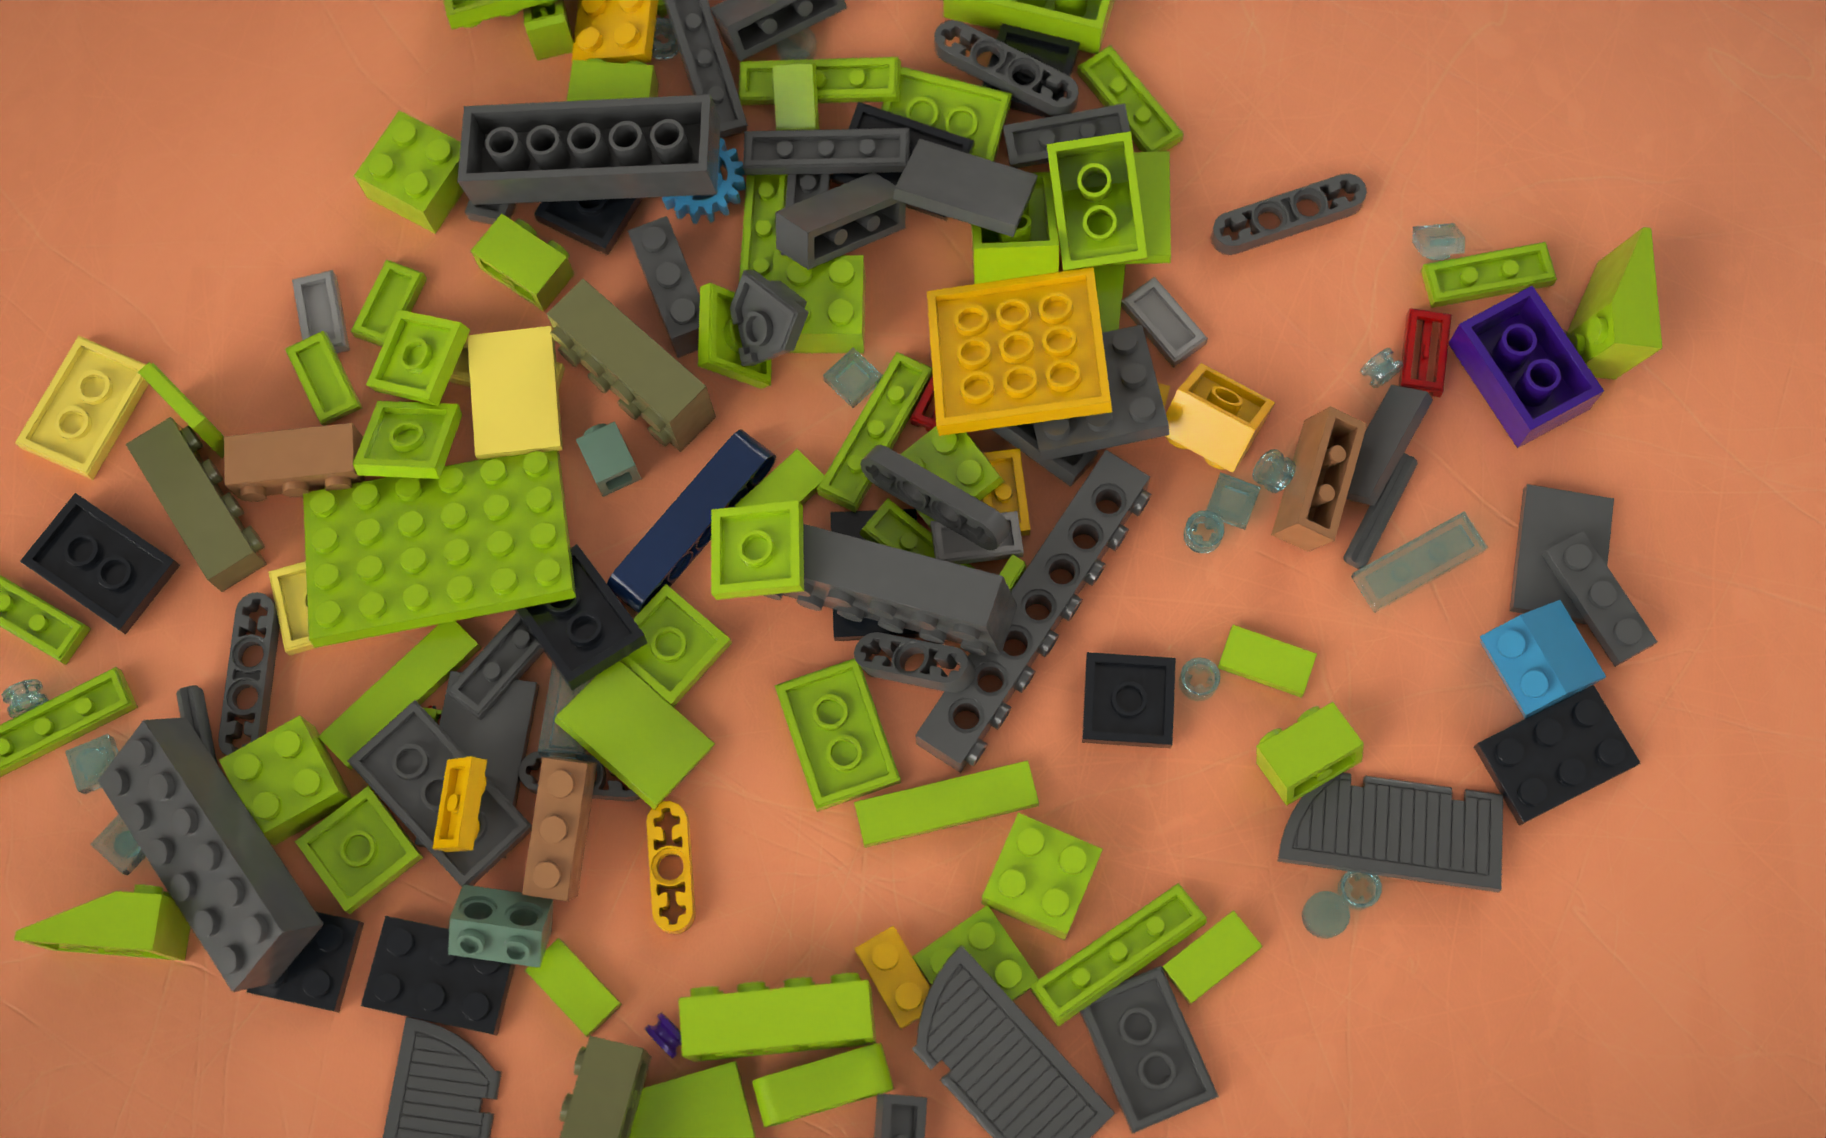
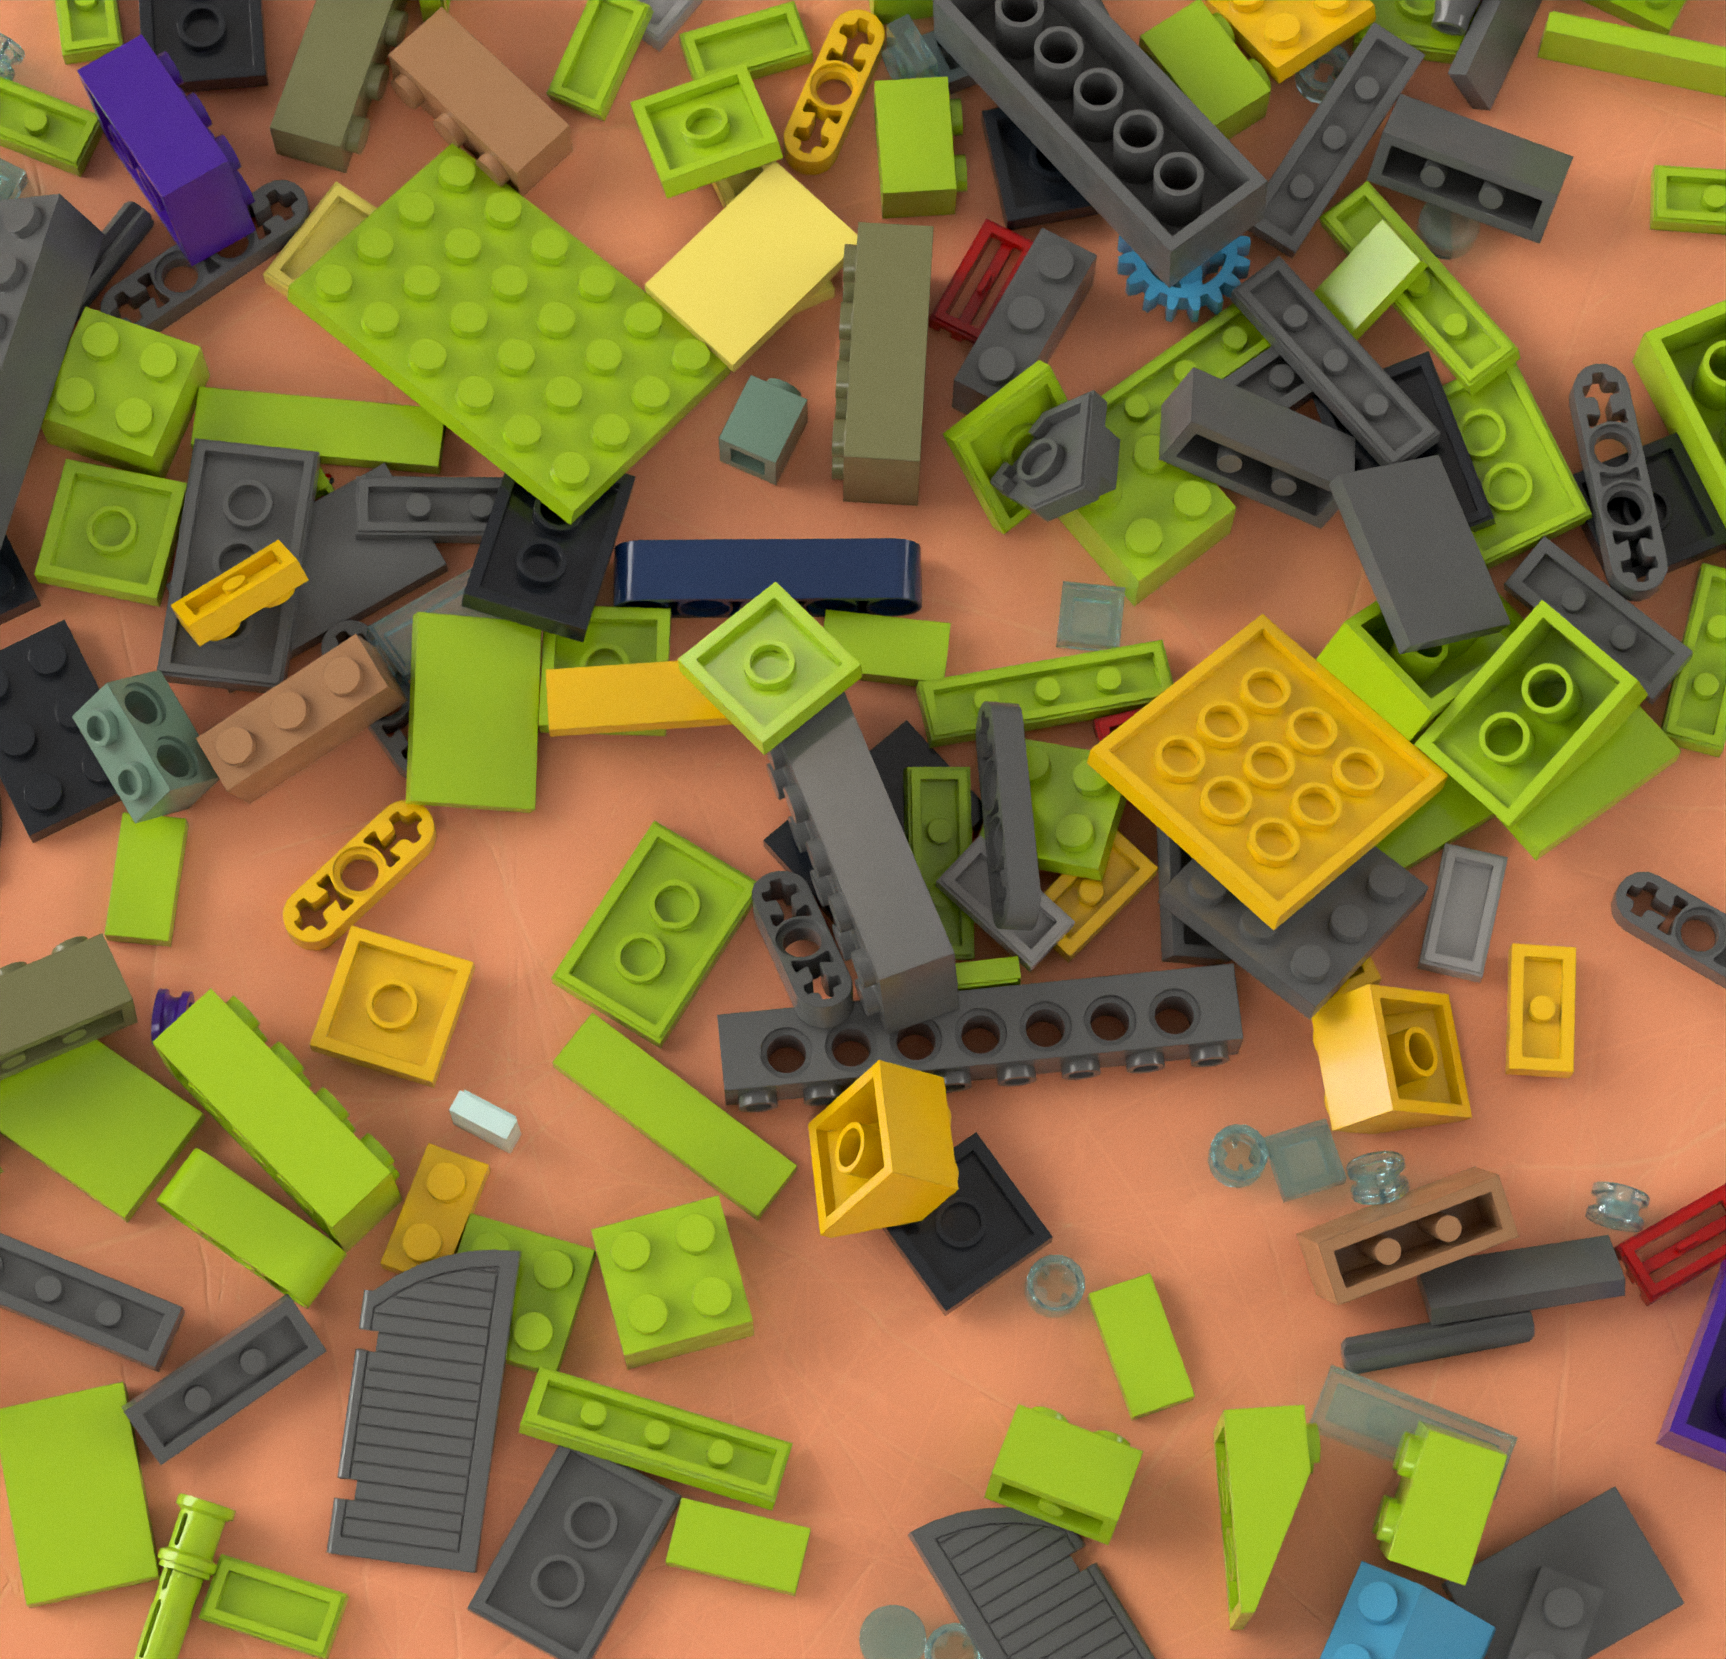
camera: 45 degrees right, 0 degrees up
(169, 642) = (169, 148): none -> dark purple brick
(407, 440) = (602, 199): lime plate -> none
(455, 262) = (827, 67): none -> yellow beam
(468, 224) = (907, 52): none -> clear light blue plate
(639, 318) = (962, 327): none -> red tile
(699, 643) = (625, 699): none -> yellow tile
(761, 907) = (392, 1006): none -> yellow plate
(868, 907) = (485, 1120): none -> light aqua tile
(1062, 708) = (883, 1151): none -> yellow slope
(1248, 324) = (1540, 1010): none -> yellow plate
(1407, 664) = (1261, 1474): none -> lime slope
(1479, 572) = (1439, 1501): none -> lime brick

